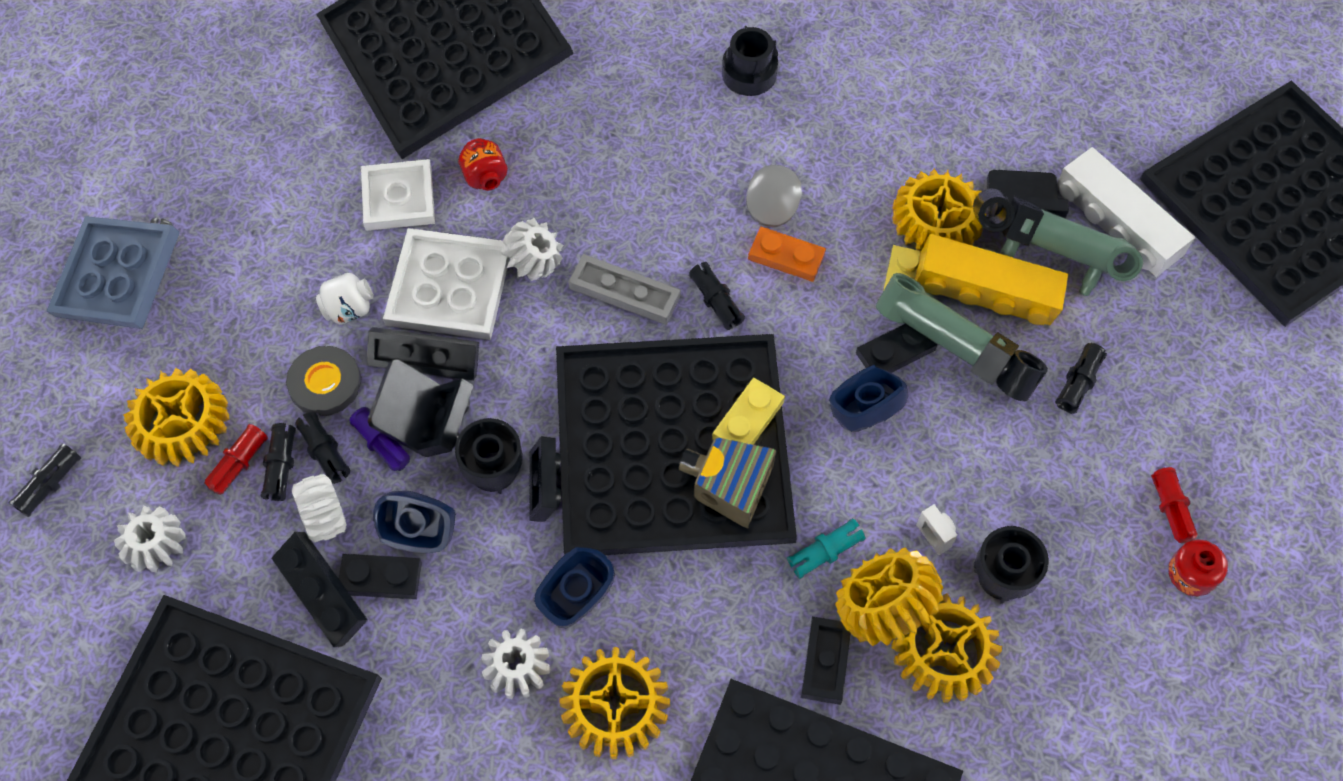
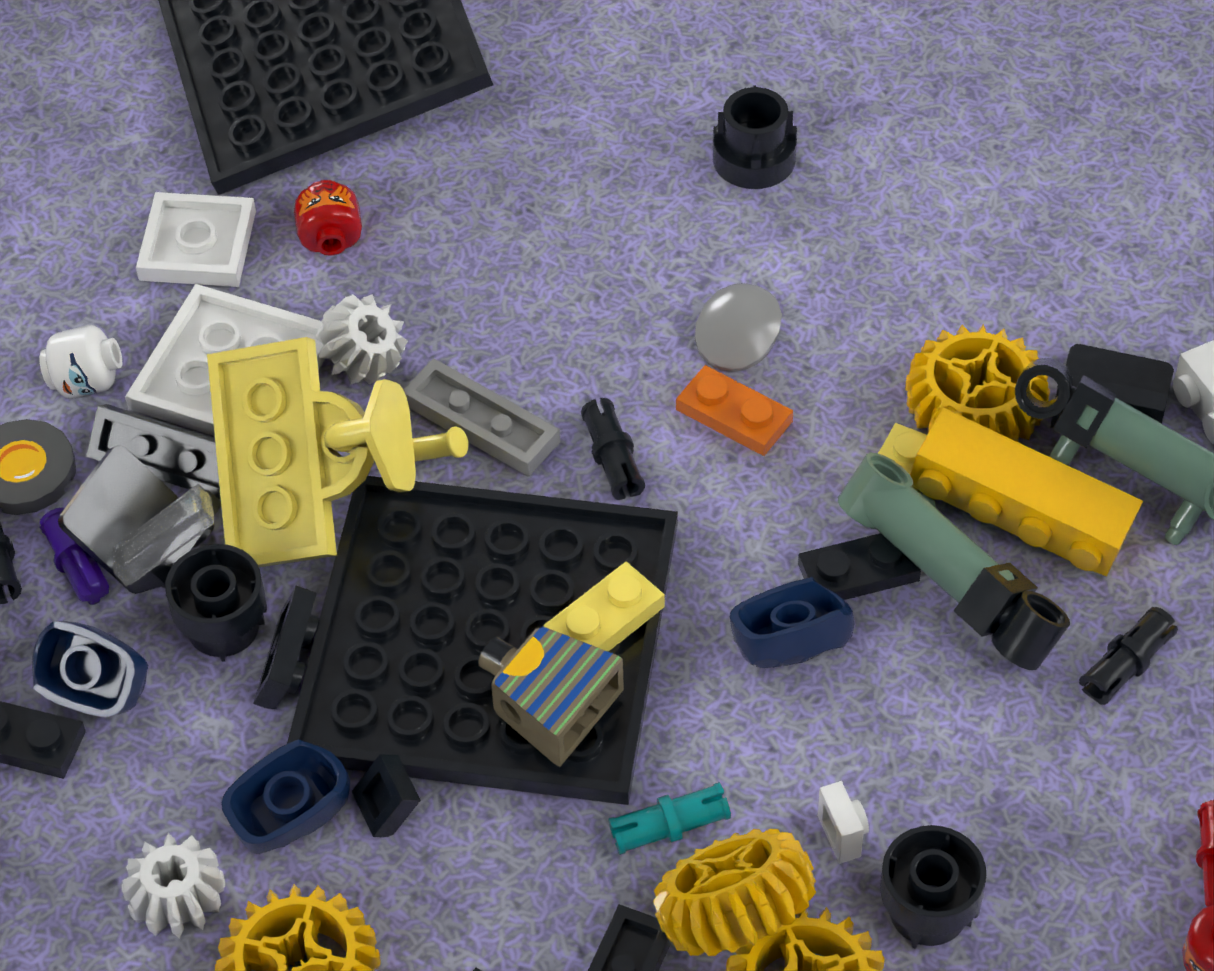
camera: 15 degrees right, 10 degrees down
(442, 418) = (163, 535): none -> clear tile
(512, 347) = (283, 442): none -> light yellow plate
(639, 571) = (385, 795): none -> black plate

